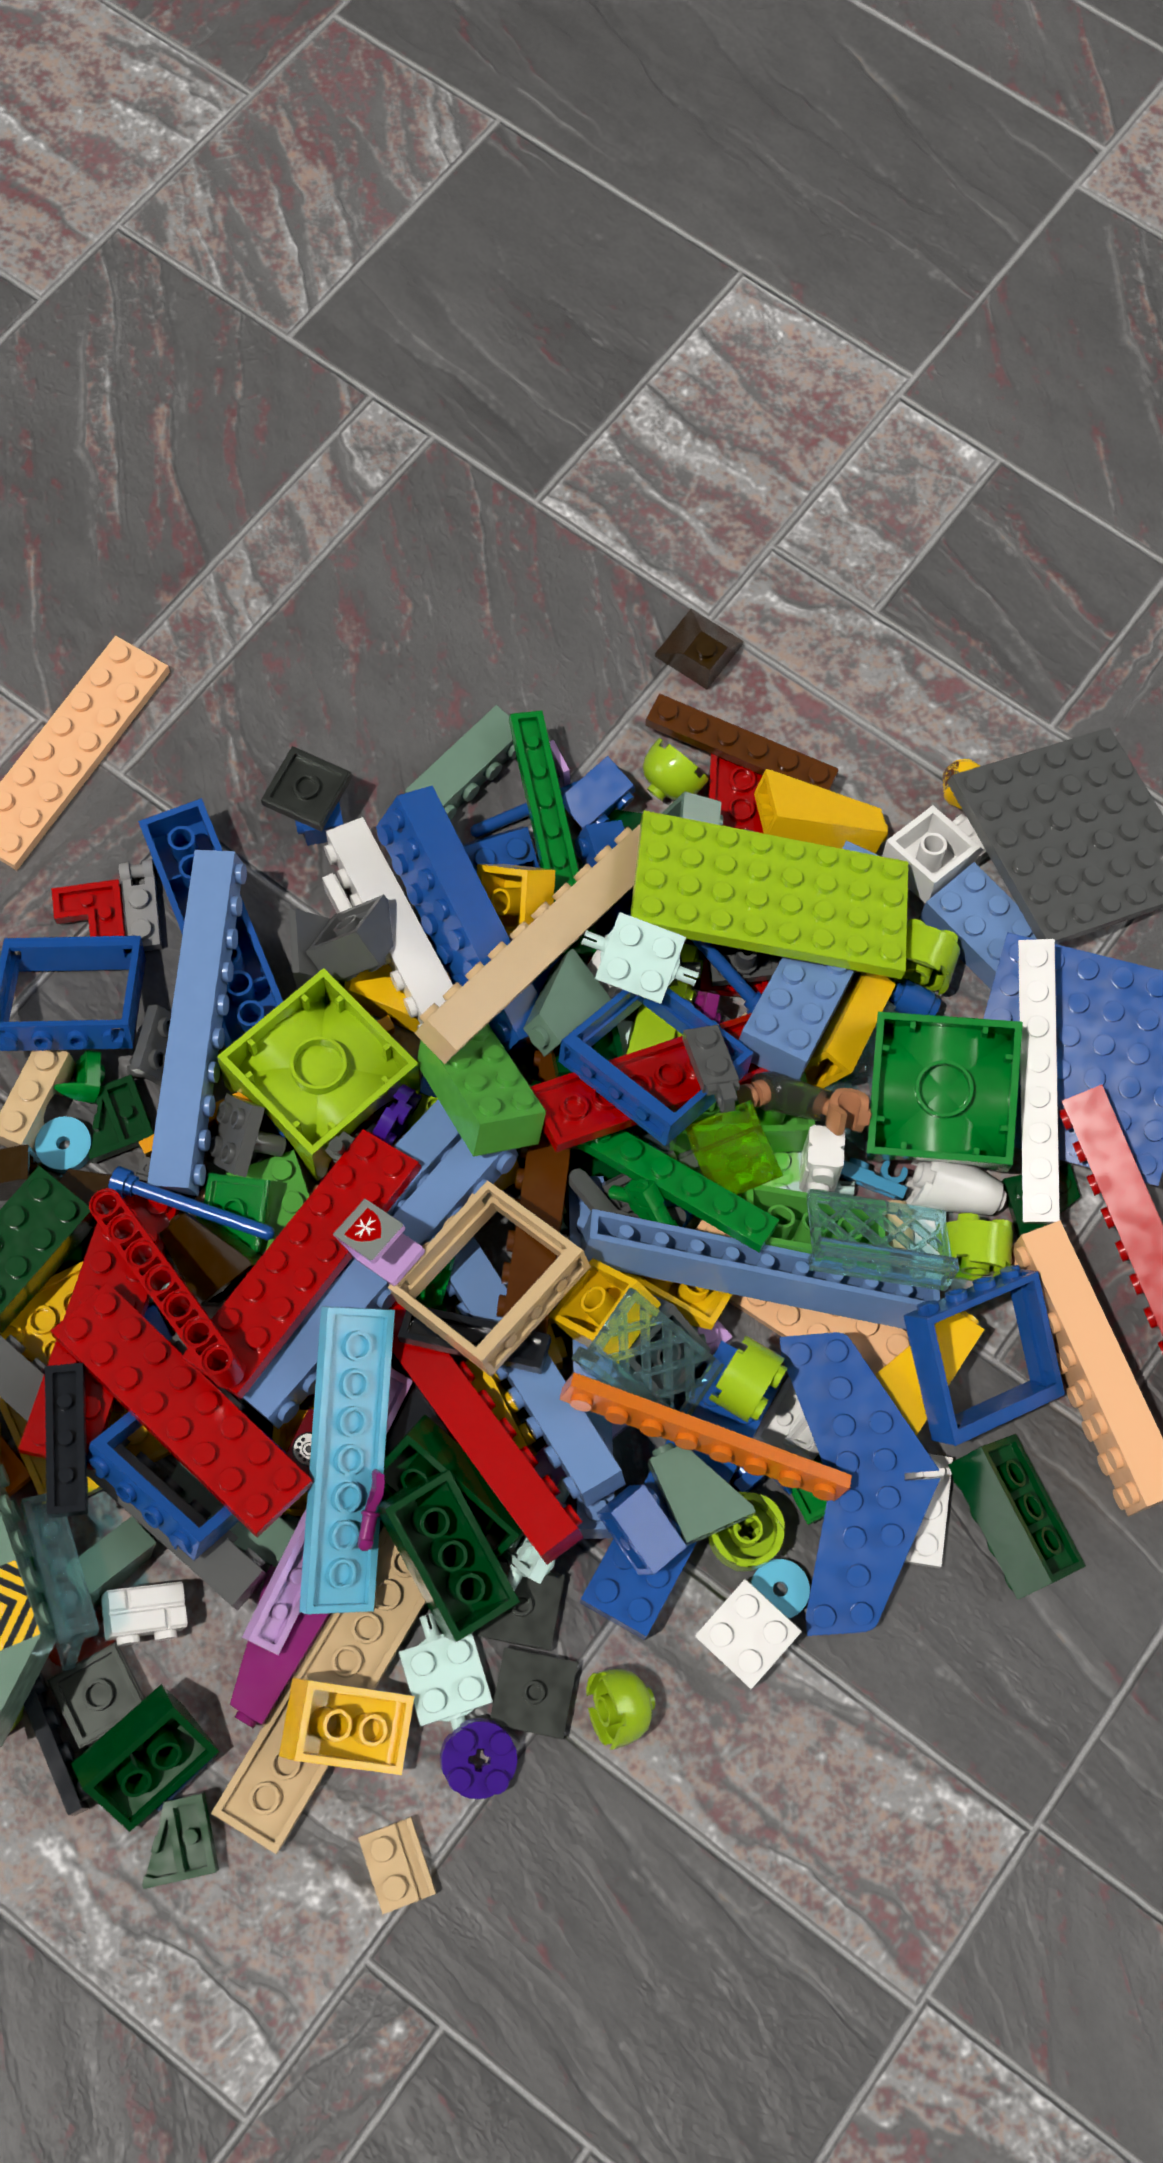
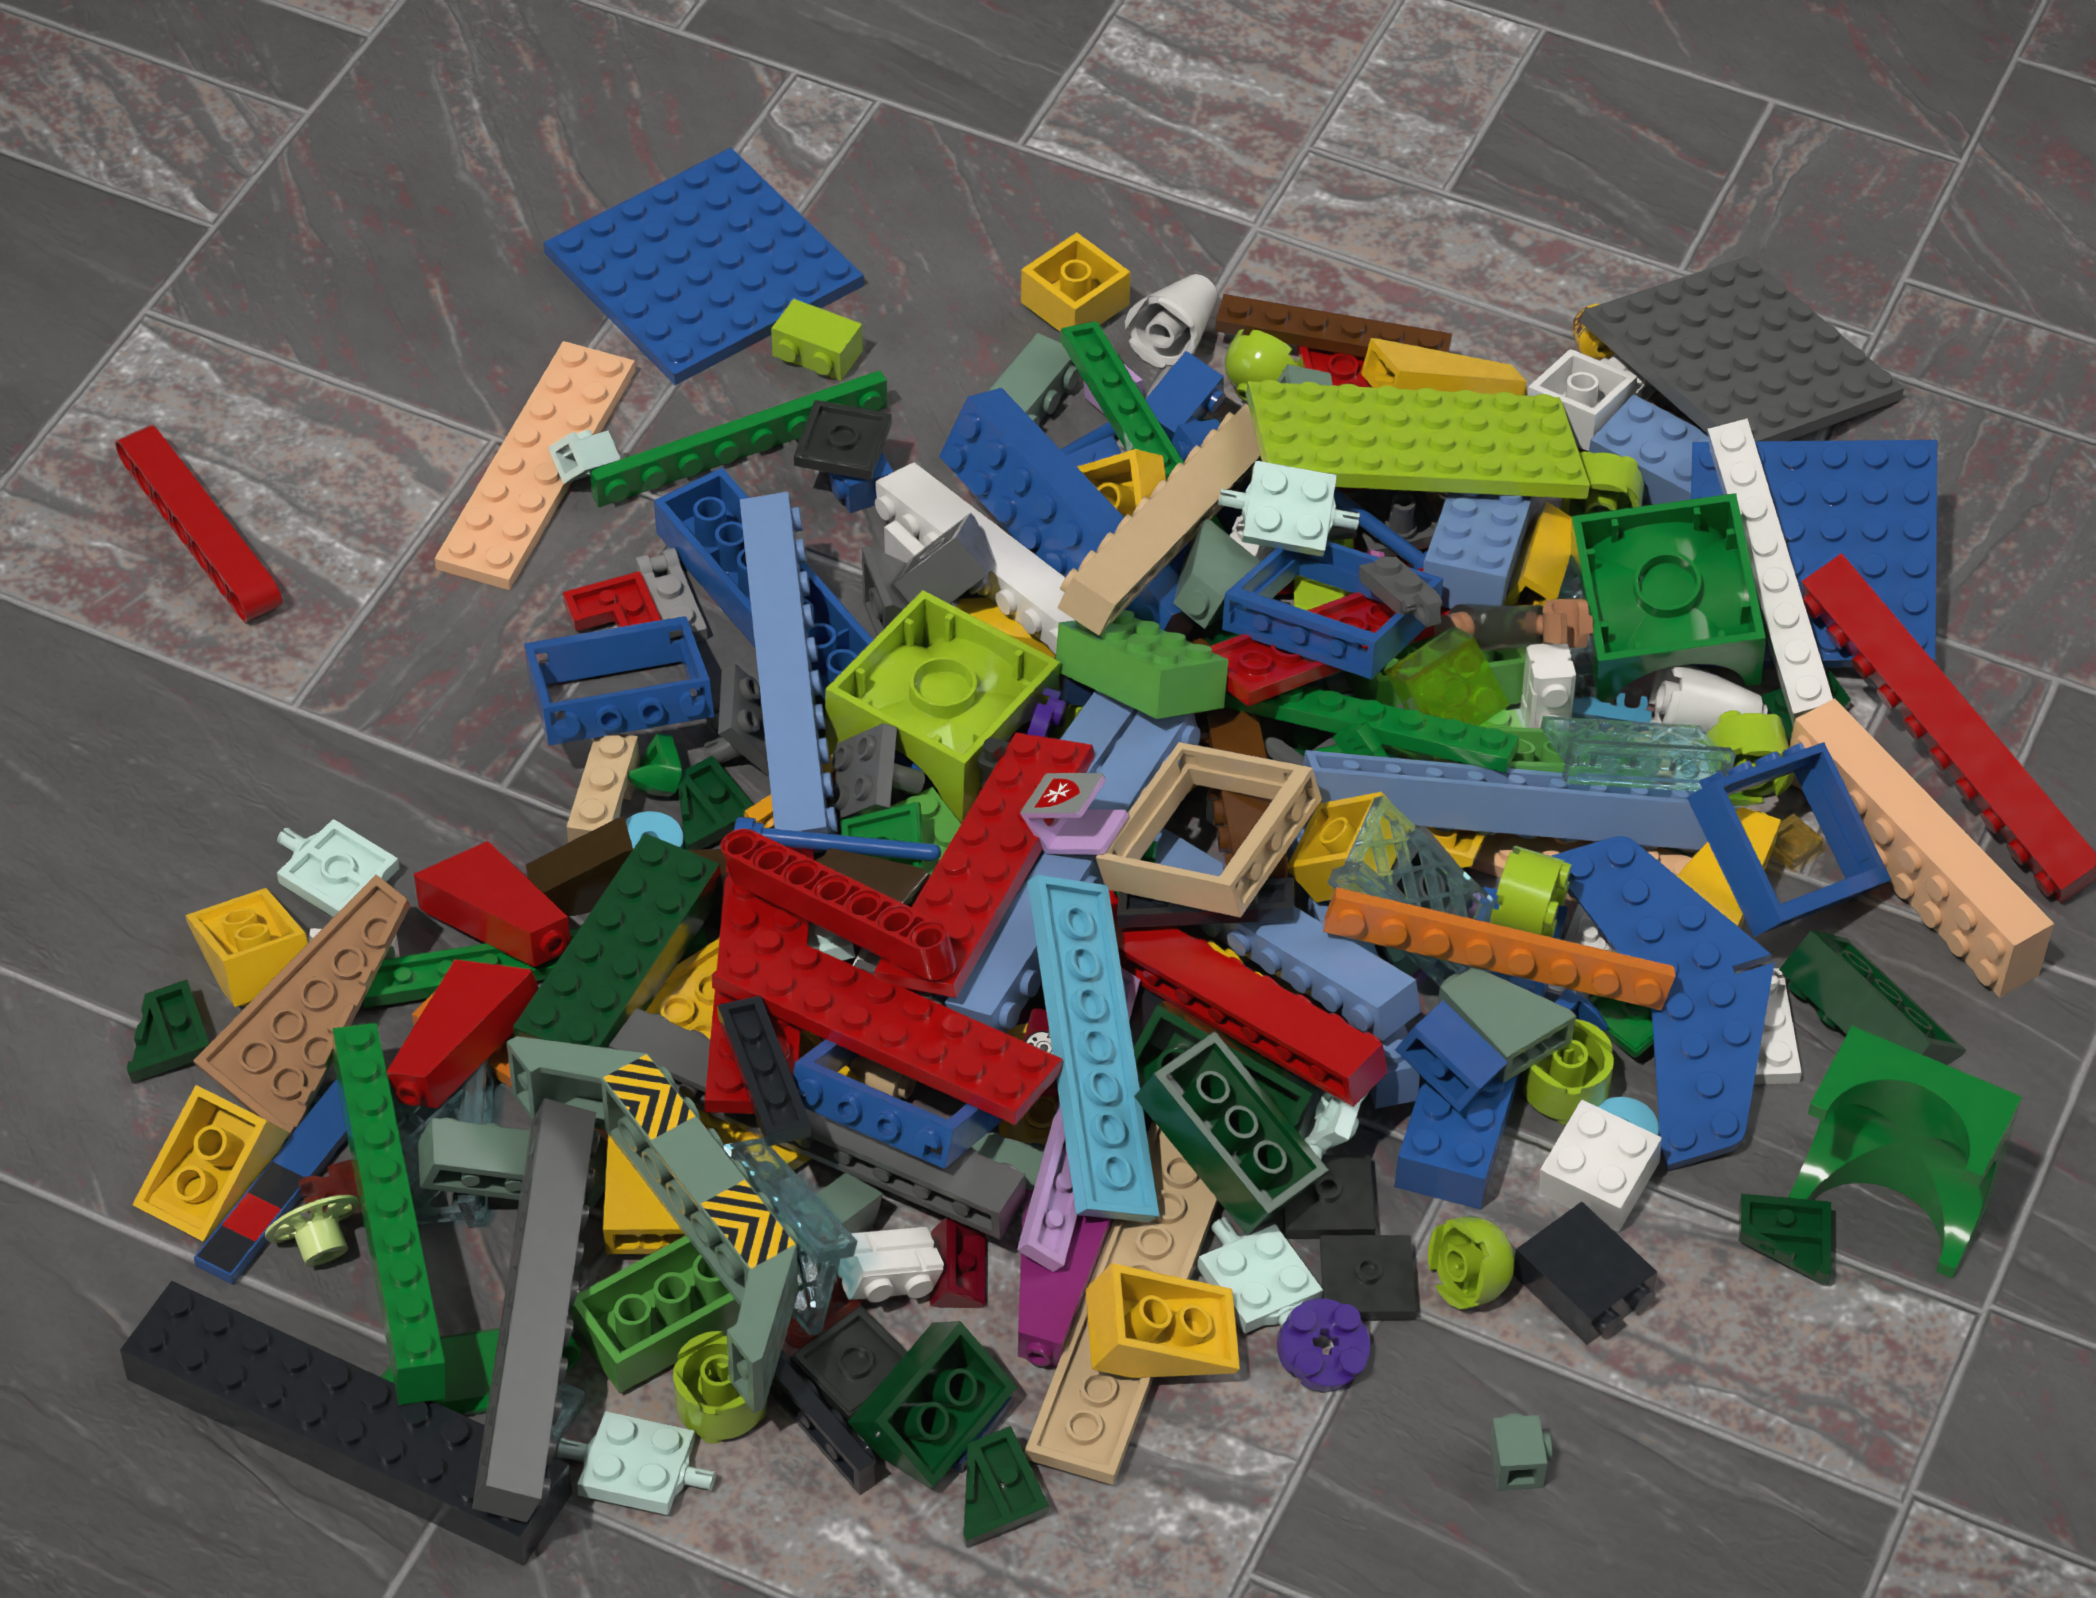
camera: 10 degrees left, 20 degrees down
(100, 757) = (582, 452): none -> light aqua brick
(206, 1618) = (964, 1260): none -> dark red slope
(228, 761) = (727, 441): none -> green plate
(249, 578) = (701, 264): none -> blue plate
(318, 673) = (817, 339): none -> lime brick
(370, 1515) = (1133, 1100): magenta piece -> none
(397, 1865) = (1258, 1471): tan plate -> none
(540, 661) = (1075, 284): none -> yellow brick
(611, 1898) = (1519, 1452): none -> sand green brick
(612, 709) = (1171, 320): none -> white cone
(699, 648) = (1253, 255): dark brown slope -> none
(711, 1734) = (1585, 1273): none -> black brick
(890, 1724) = (1789, 1232): none -> dark green wing
(997, 1331) = (1796, 842): none -> clear yellow plate
(1044, 1707) = (1912, 1129): none -> green piece

